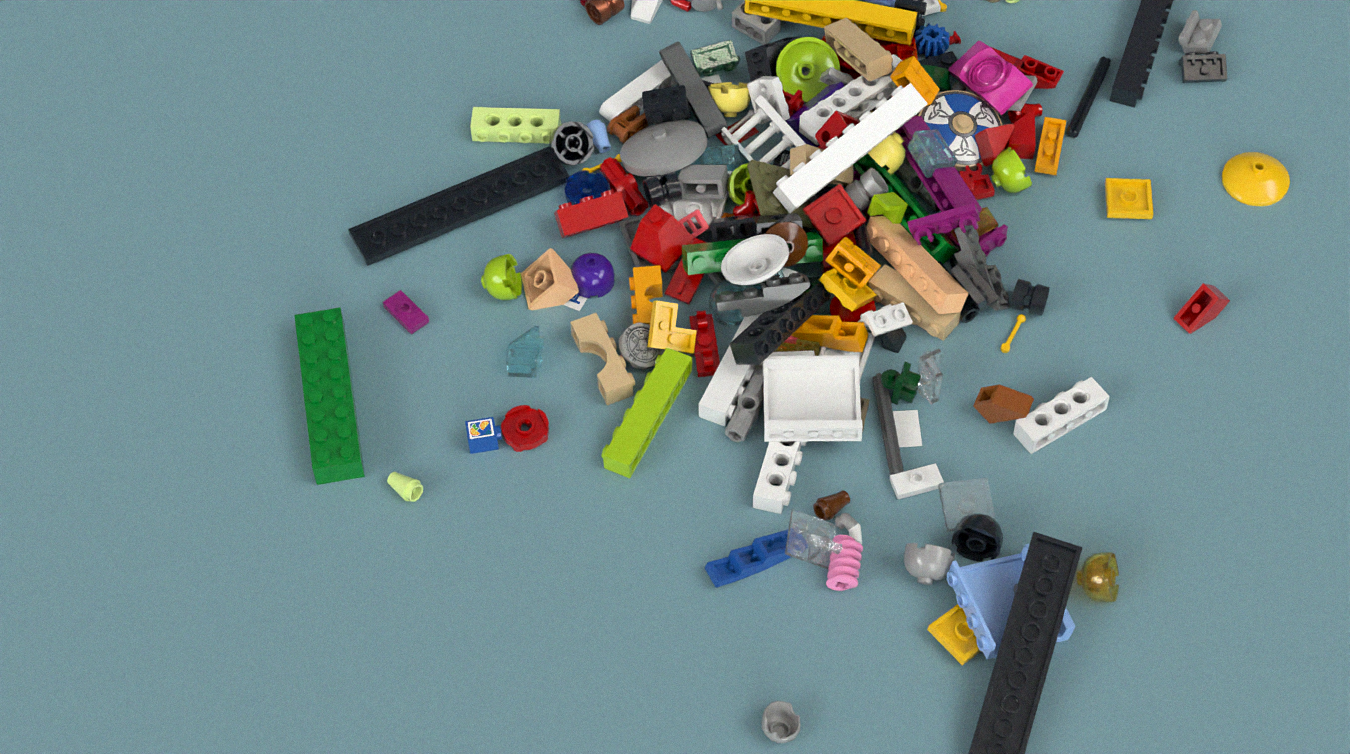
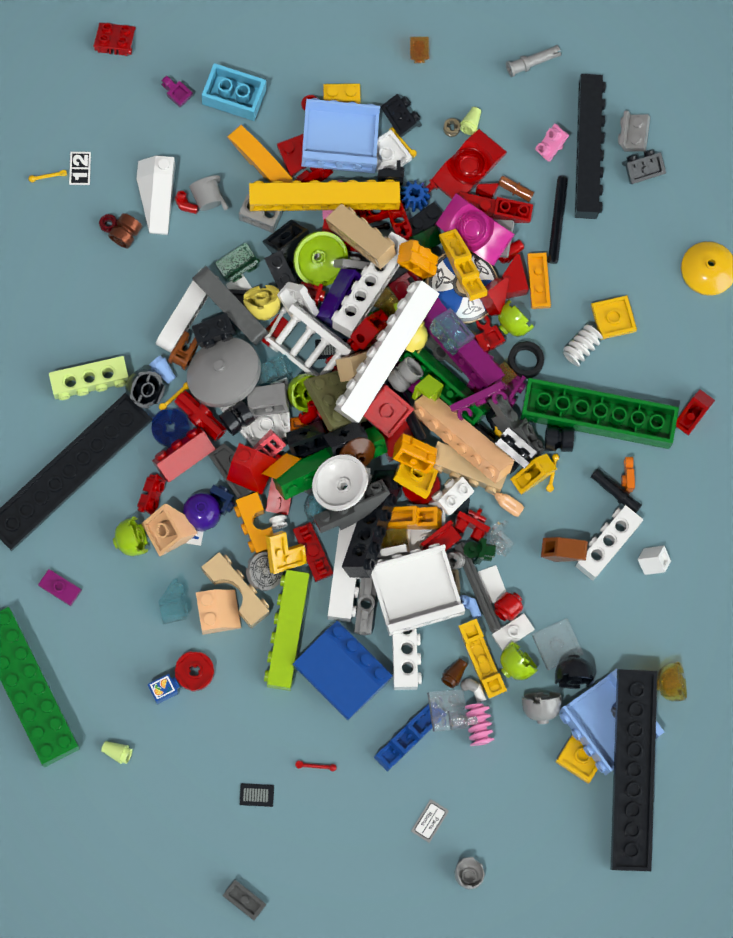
camera: 25 degrees left, 20 degrees up
(494, 680) = (244, 900): none -> dark grey plate
(547, 239) = (154, 486): none -> red hinge
(551, 575) = (256, 795): none -> black sticker
(573, 373) = (218, 611): none -> light nougat slope
(613, 556) = (299, 764): none -> red hinge
(622, 267) = (221, 493): none -> dark blue bracket
(678, 299) = (278, 522): none -> white bush
(695, 242) = (281, 466): none -> light orange sticker
(698, 463) = (342, 670): none -> blue slope
(751, 658) = (430, 821): none -> sticker
(868, 358) = (445, 535): none -> red panel
(869, 495) = (481, 658): none -> yellow slope
(870, 389) = (460, 559): none -> light grey bush
(874, 440) = (471, 604): none -> light blue arm
(899, 354) = (465, 520): none -> red hips
(910, 509) = (517, 663): none -> lime cylinder
(918, 449) = (508, 606): none -> red head
(951, 351) = (509, 504): none -> light nougat piece
(965, 101) = (462, 264): none -> yellow slope
(990, 324) = (534, 473): none -> yellow slope
(1004, 27) = (469, 165): none -> red slope
(1016, 49) = (487, 190): none -> red slope
(1019, 203) = (530, 347): none -> black tyre
(1048, 57) = (516, 188): none -> dark orange axle
(1082, 363) = (615, 490): none -> black pin
(1084, 213) = (581, 344): none -> white piece
(1087, 282) = (599, 413): none -> green brick
(1102, 22) = (552, 142): none -> bright pink hips
(1102, 356) = (628, 478): none -> orange plate
(1112, 446) = (654, 560): none -> white panel

